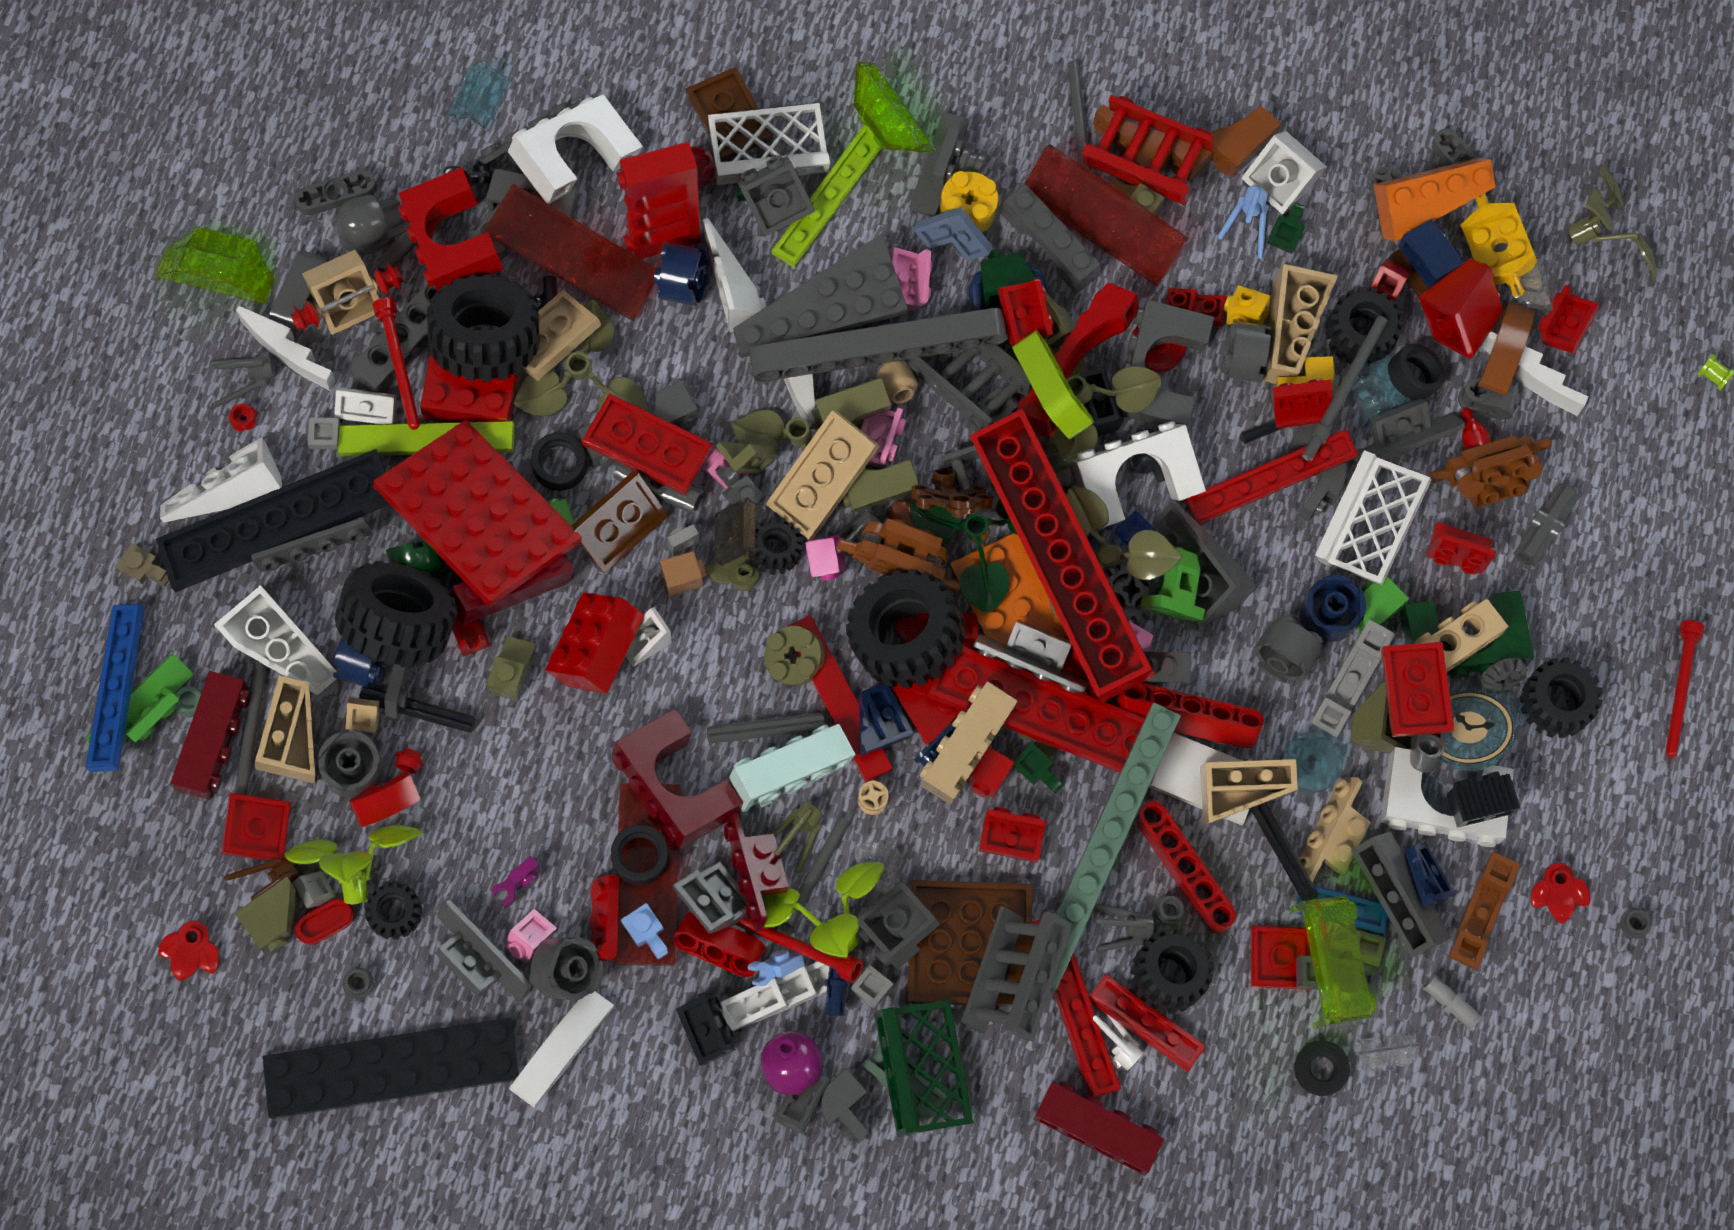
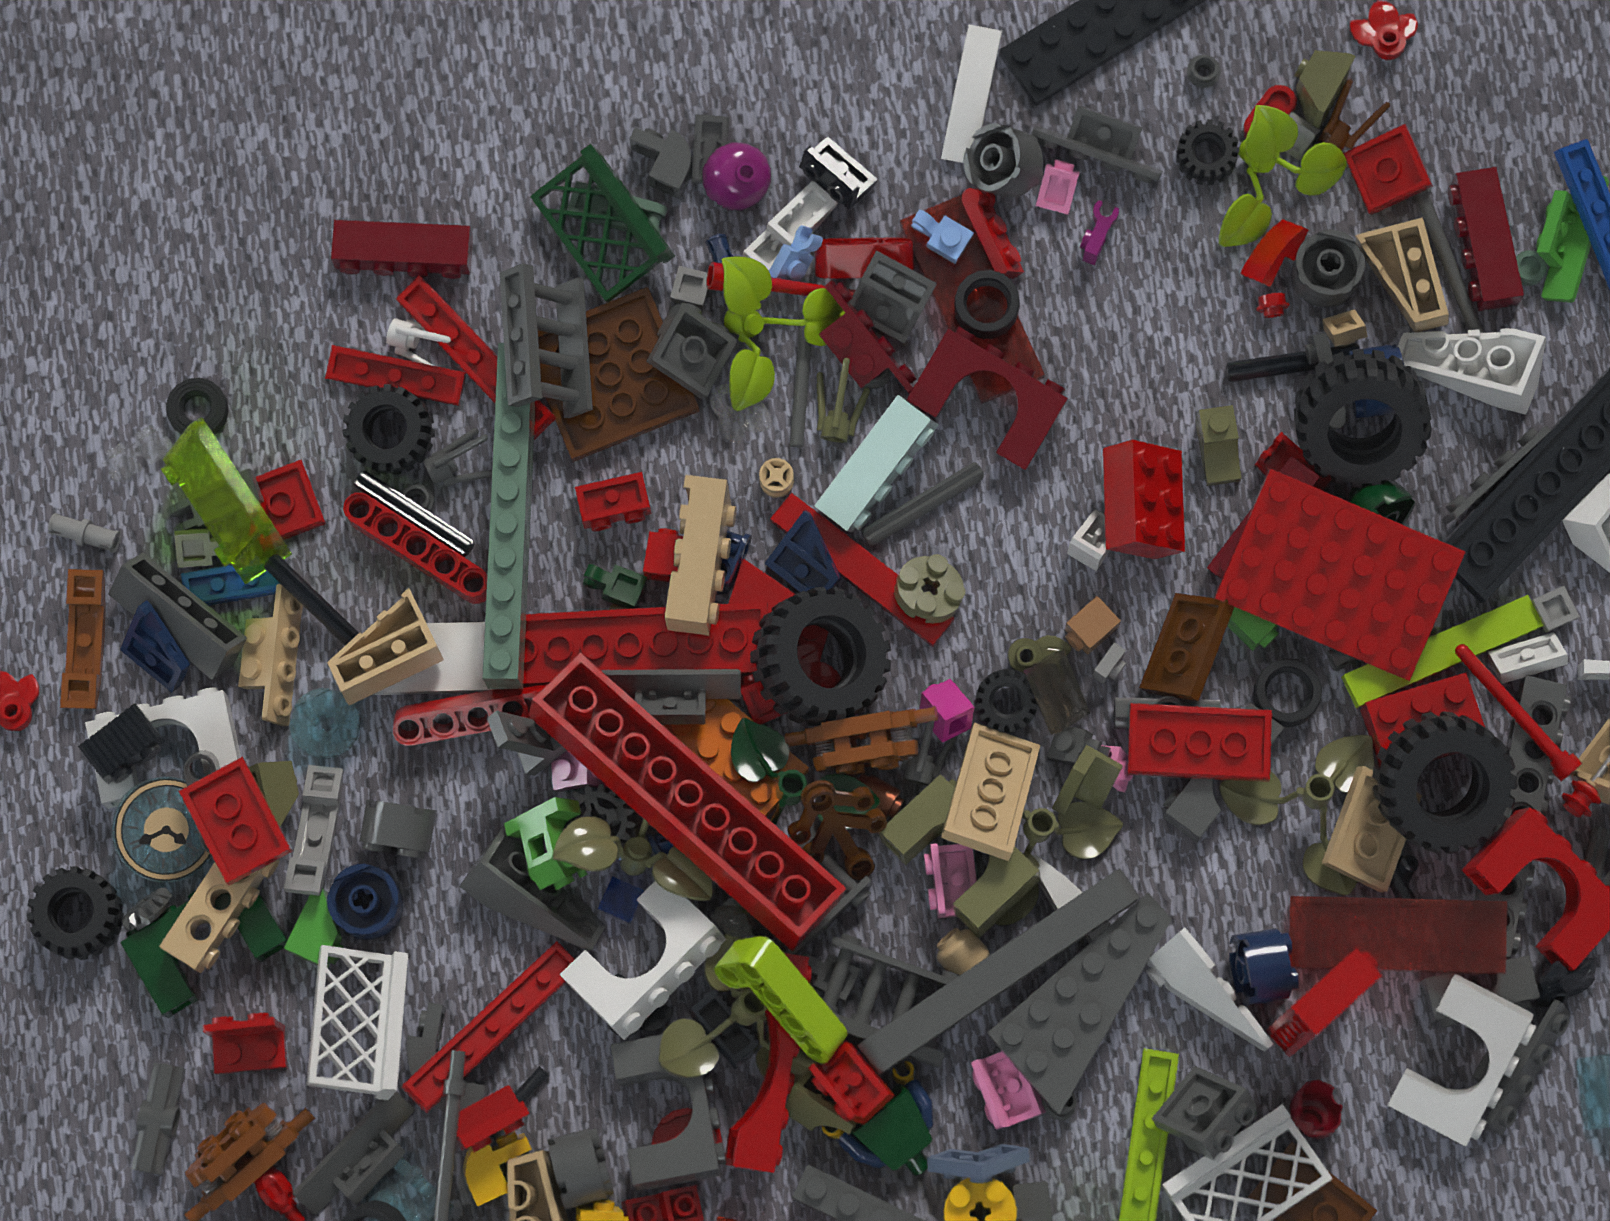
camera: 165 degrees right, 5 degrees up
(1178, 892) = (414, 513): none -> black axle

